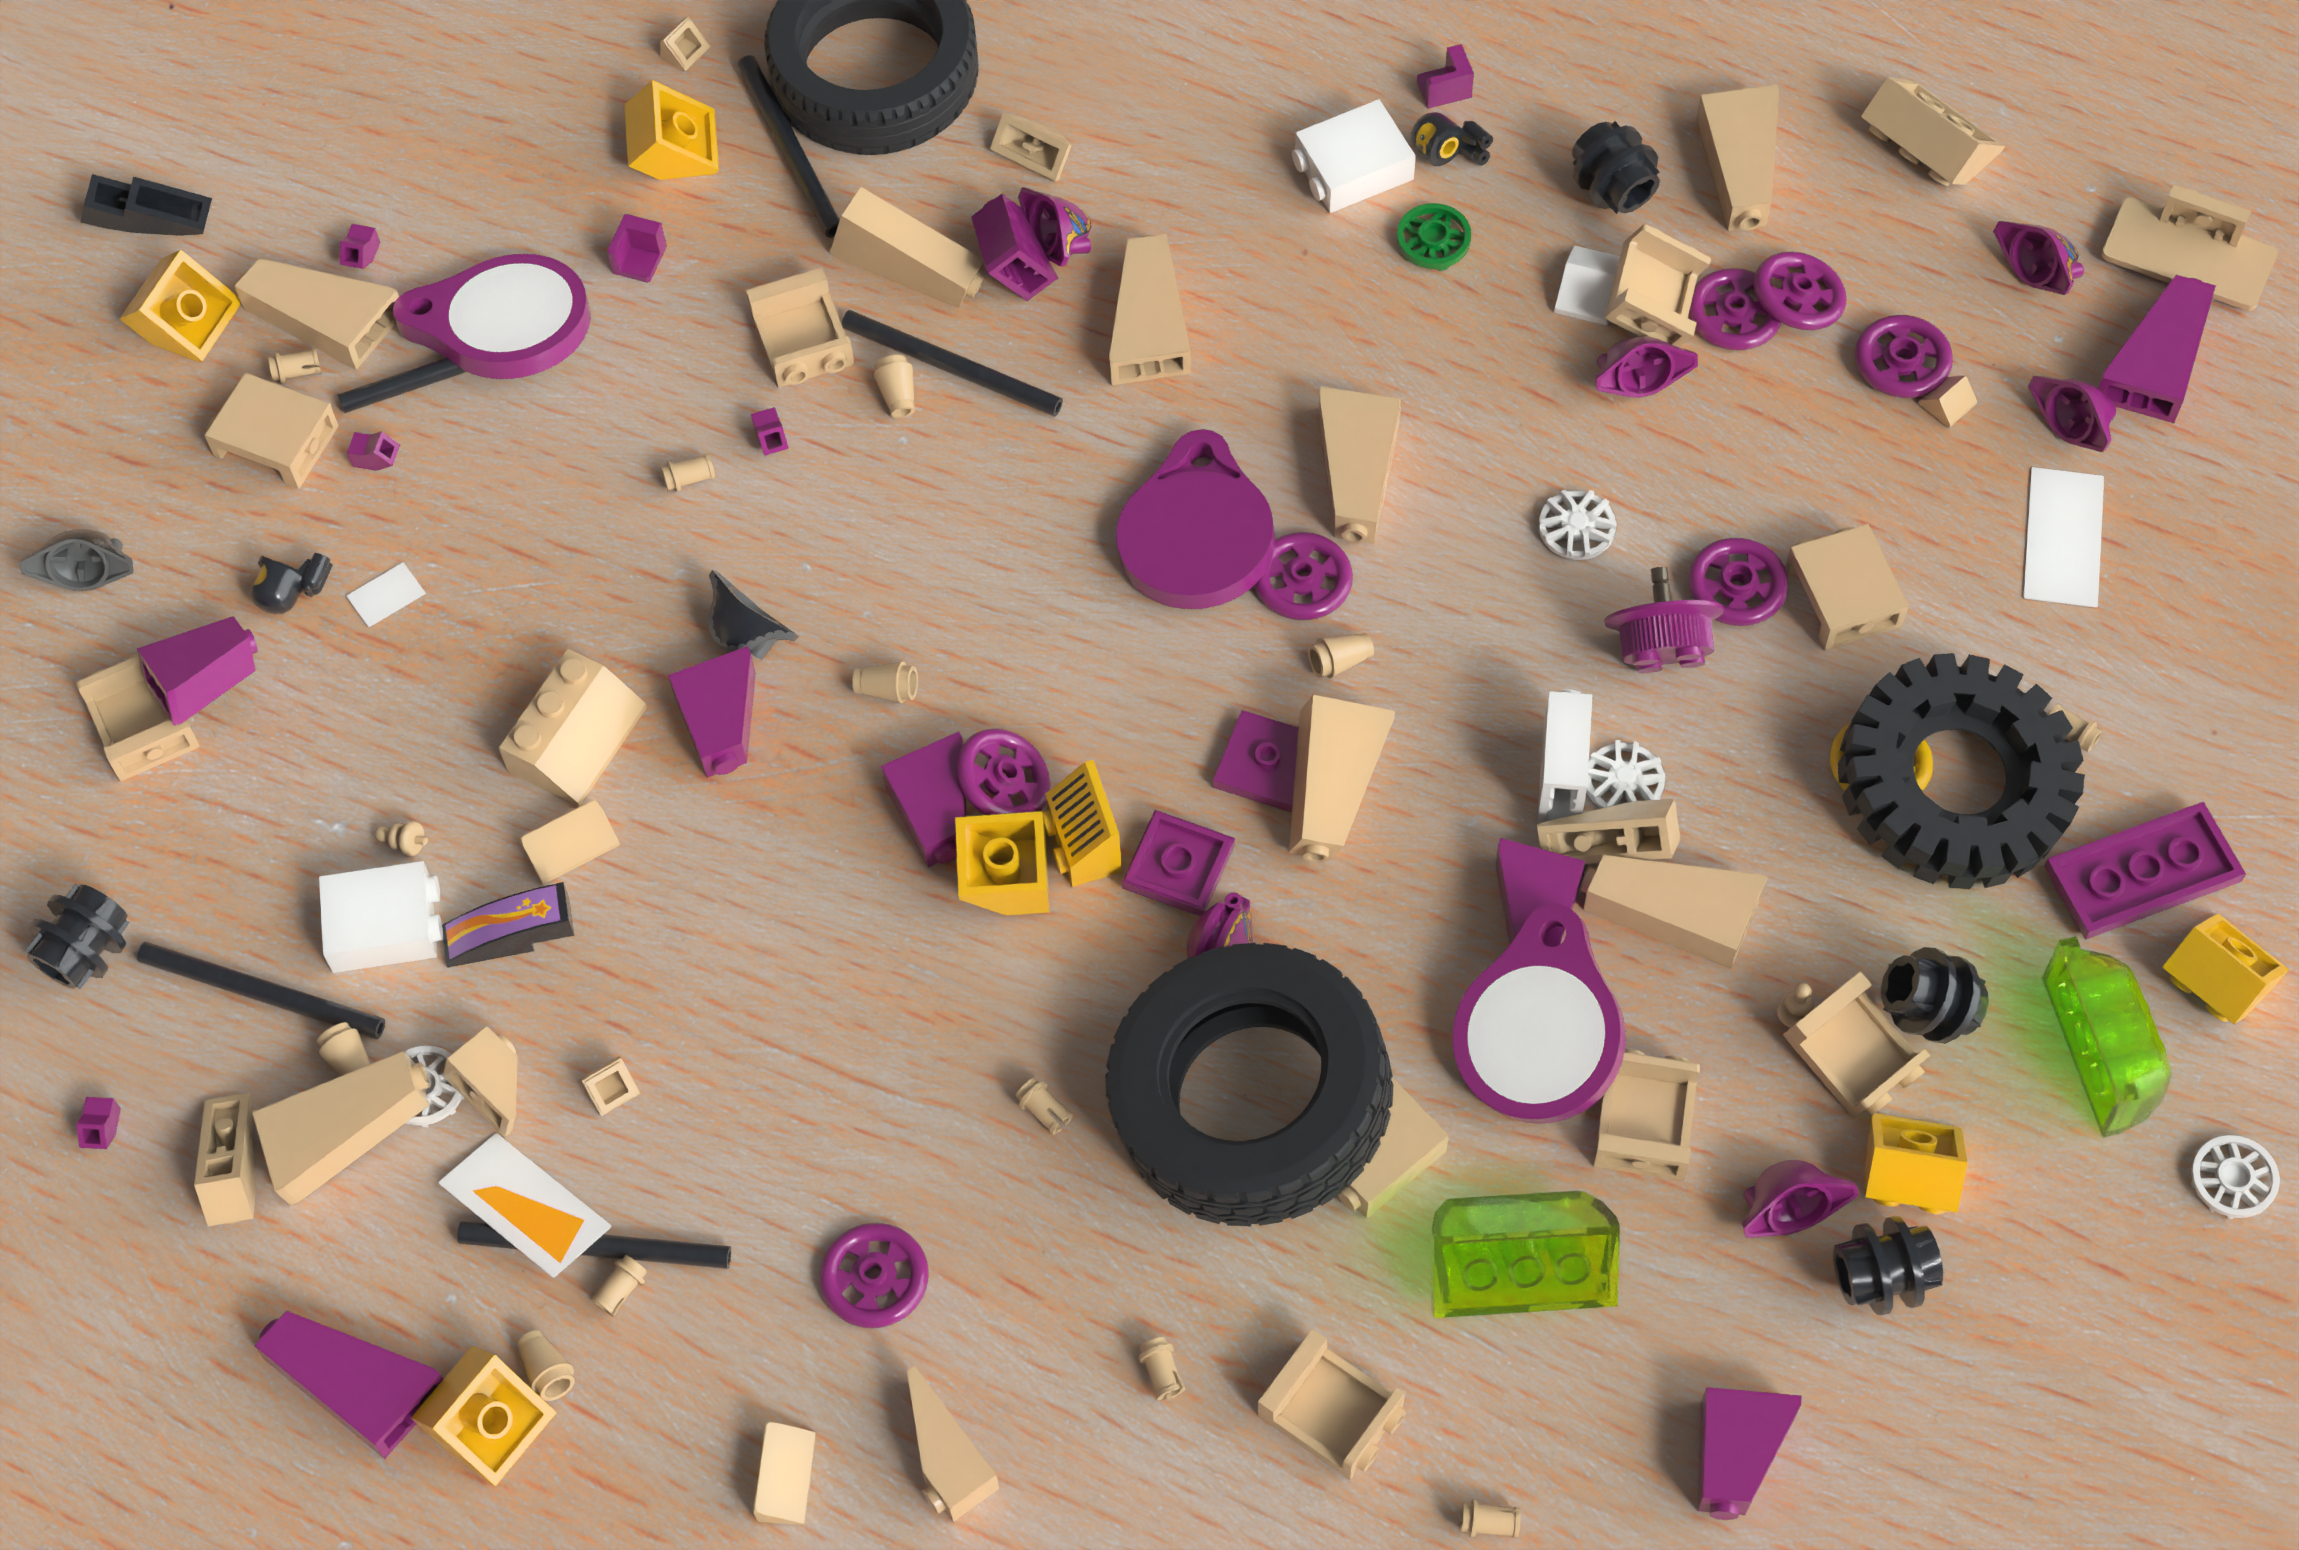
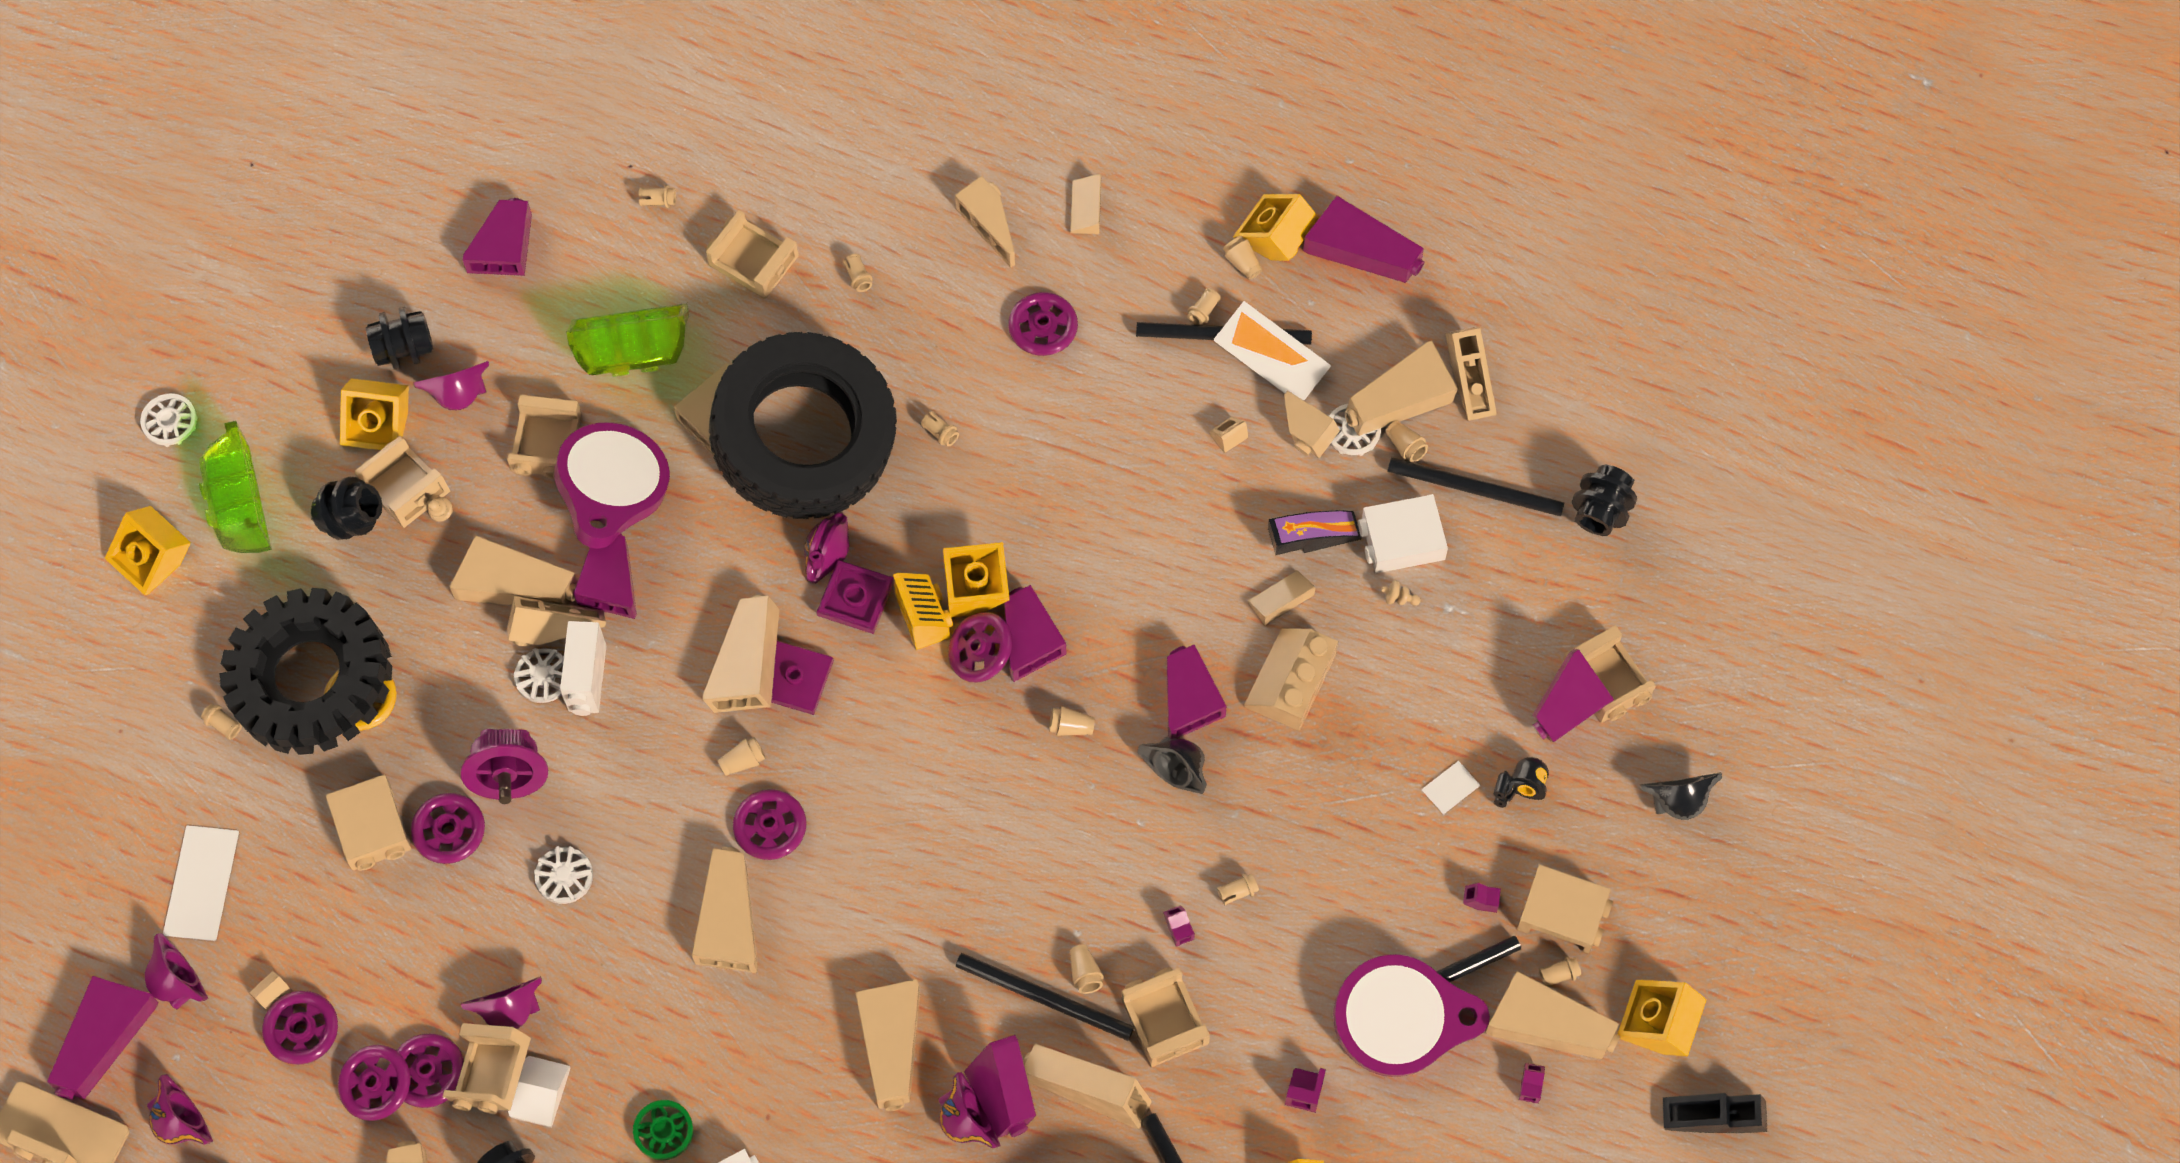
camera: 175 degrees right, 5 degrees up
(98, 1123) = (1562, 393): magenta piece -> none
(1196, 531) = (848, 853): magenta piece -> none
(2144, 870) = (188, 617): magenta plate -> none

